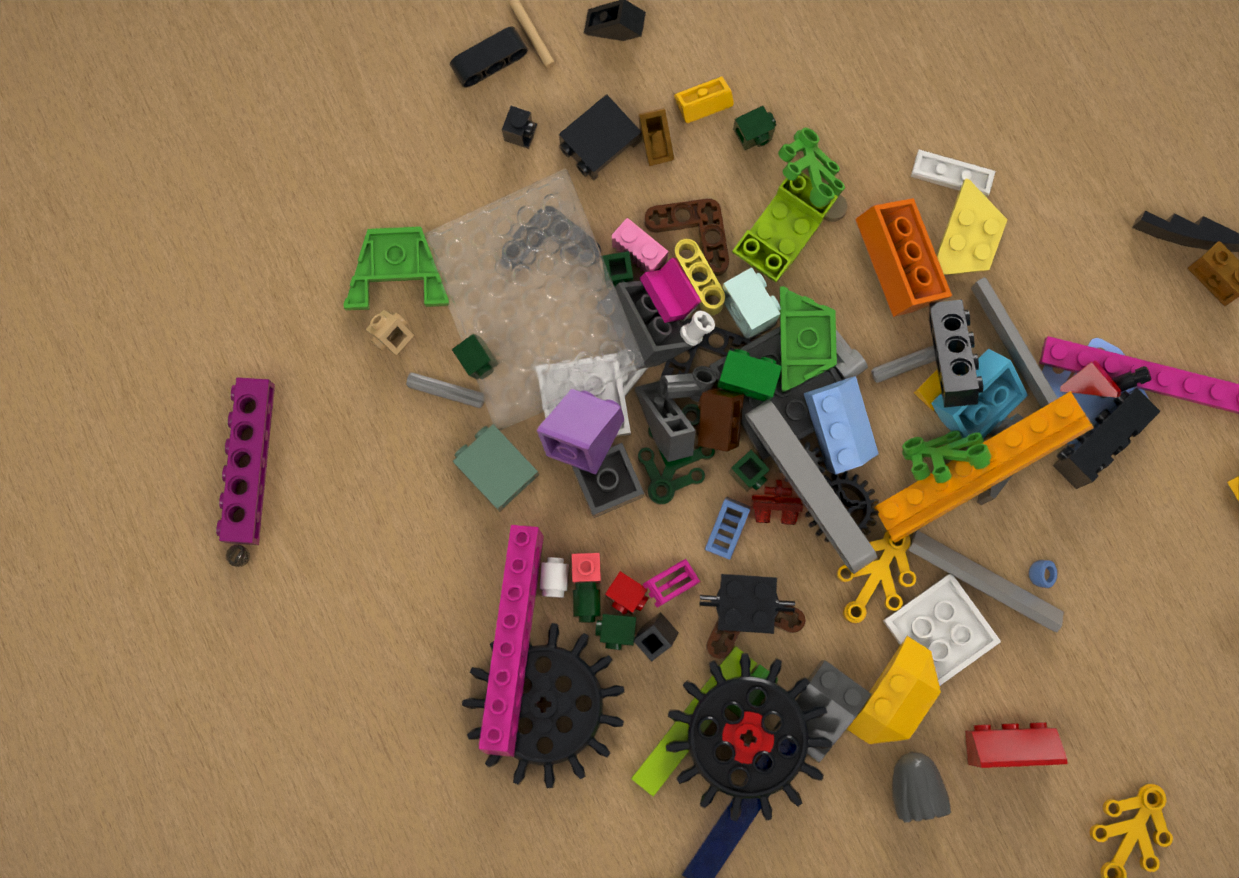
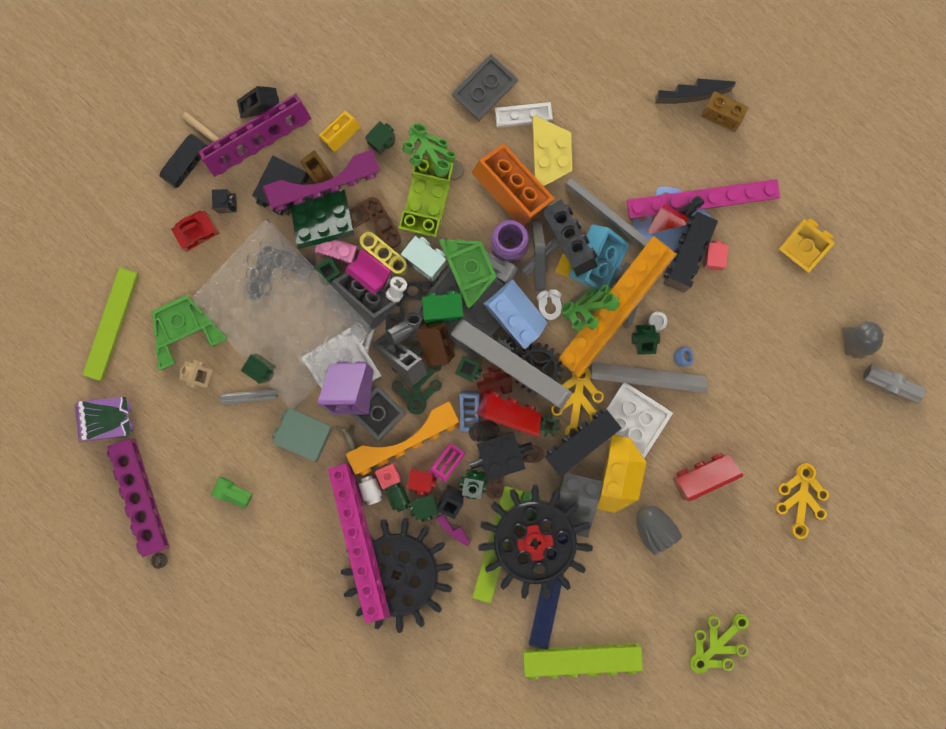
camera: 15 degrees left, 5 degrees up
(245, 341) = (103, 419): none -> slope
(306, 225) = (110, 324): none -> lime tile
(366, 500) = (227, 491): none -> bright green piece
(465, 148) = (194, 230): none -> red brick
(554, 495) = (348, 436): none -> dark tan bar
(604, 146) = (283, 193): none -> magenta arch
(606, 50) = (259, 126): none -> magenta brick
(636, 199) = (322, 219): none -> dark green plate
(648, 683) = (457, 533): none -> magenta slope
(683, 523) = (365, 456): none -> light orange arch
(701, 619) = (473, 484): none -> dark green brick
(737, 560) = (483, 430): none -> clear smoke brick
(782, 551) = (510, 413): none -> red slope
(830, 583) = (550, 419): none -> dark green gear
(865, 629) = (582, 442): none -> black brick
(880, 314) = (510, 230): none -> medium lavender piece
(902, 423) = (555, 297): none -> white piece
(907, 352) = (539, 255): none -> dark grey beam
(916, 118) = (484, 87): none -> dark grey plate
(1002, 528) = (645, 339): none -> dark green brick
(1026, 512) = (658, 319): none -> white tile
(1138, 457) = (715, 256): none -> coral brick

